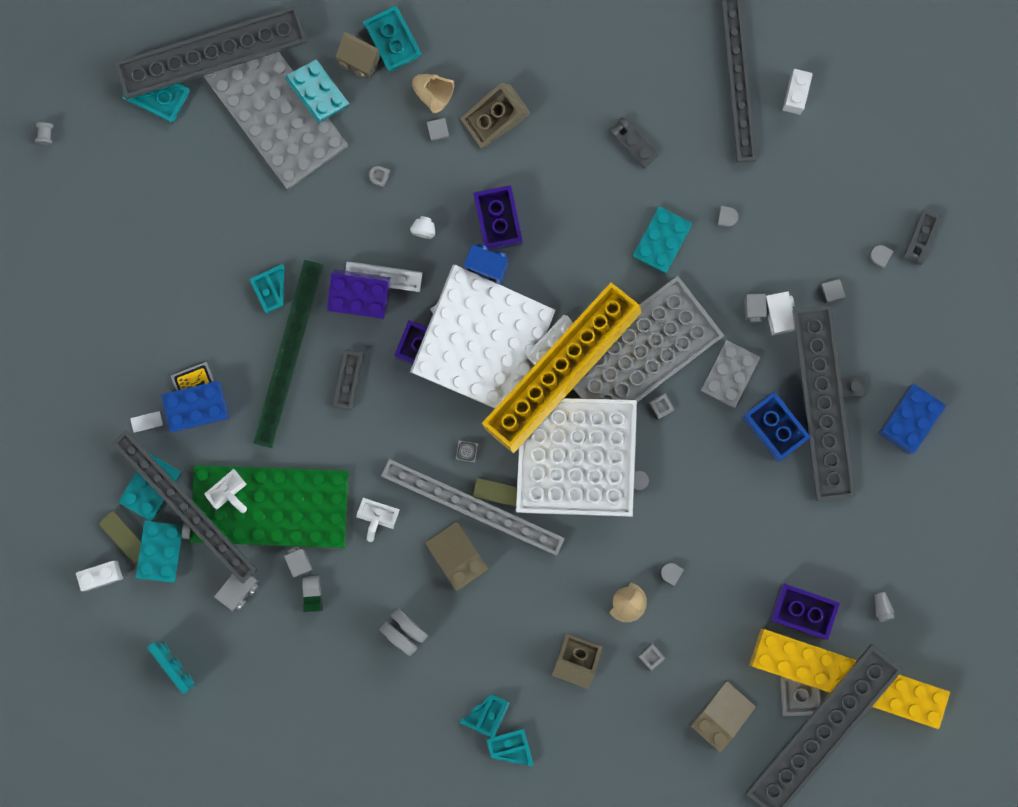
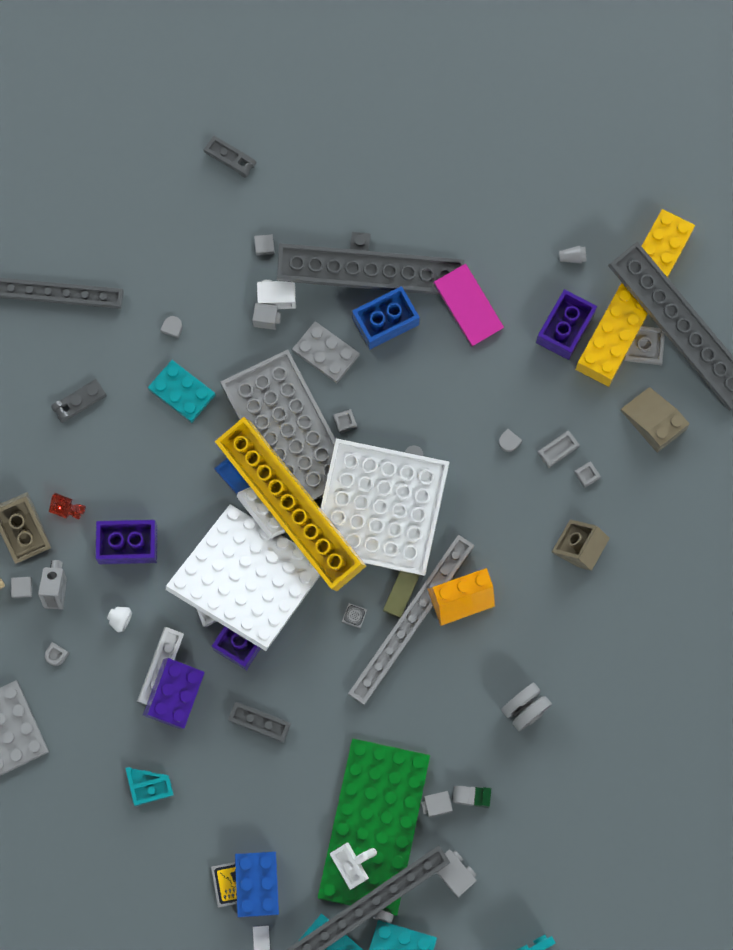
camera: 75 degrees left, 10 degrees down
(288, 354) = (220, 778): clear green plate -> none
(377, 514) = (403, 715): white plate -> none
(436, 158) = (53, 586): none -> light grey torso
(456, 556) = (458, 643): dark tan slope -> none
(486, 263) = (171, 555): blue brick -> none
(487, 716) = (621, 641): teal wing -> none
(503, 552) = (462, 596): none -> light orange slope
(511, 747) = (656, 623): teal wing -> none
(522, 151) = (63, 507): none -> clear red plate
(583, 303) = (231, 476): none -> blue tile
(629, 603) = (532, 486): tan helmet -> none
(672, 624) = (558, 449): none -> light grey tile
(797, 91) = (65, 239): white brick -> none
(806, 508) = (468, 305): none -> dark pink tile
(880, 255) = (239, 196): light grey tile -> none
(912, 419) = (400, 196): blue brick -> none

